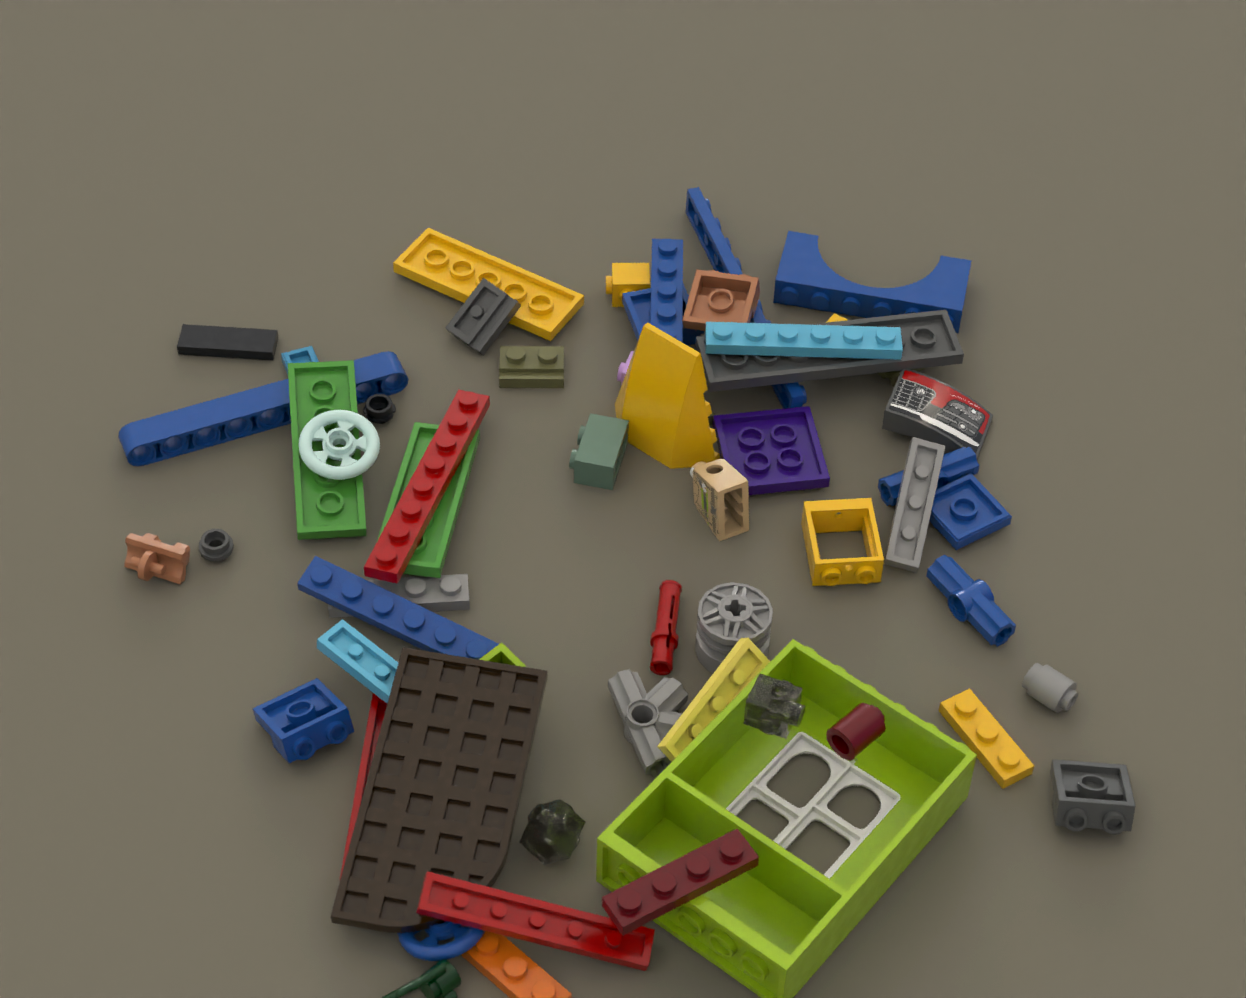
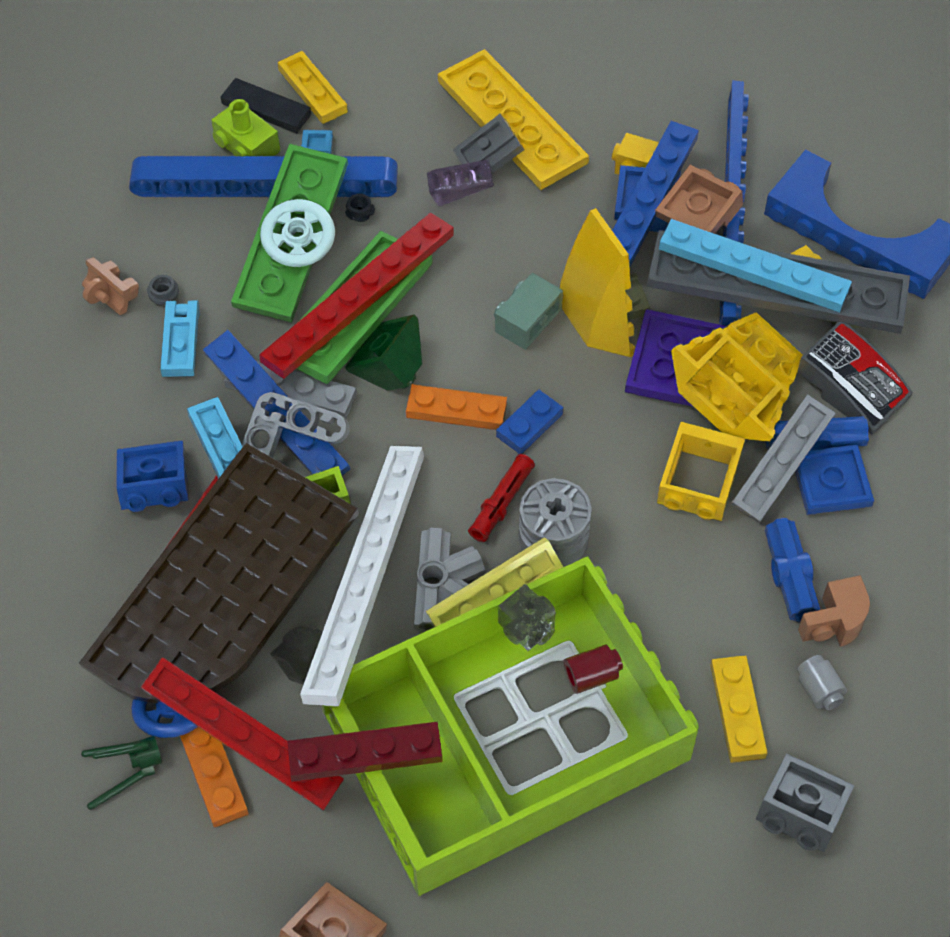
camera: 25 degrees right, 10 degrees up
(221, 371) = (244, 131): none -> lime brick
(260, 585) = (179, 339): none -> medium azure plate
(269, 311) = (312, 87): none -> yellow plate
(410, 628) = (274, 424): none -> light grey beam
(452, 356) = (441, 181): none -> clear purple slope
(487, 531) = (390, 354): none -> dark green slope
(531, 367) = (512, 209): olive plate -> none
(575, 561) = (456, 407): none -> orange plate
(584, 734) = (362, 578): none -> white plate
(654, 552) = (529, 422): none -> blue plate
(721, 497) = (611, 376): tan torso -> none
(836, 447) = (738, 376): none -> yellow wedge
(1036, 620) = (844, 615): none -> nougat brick

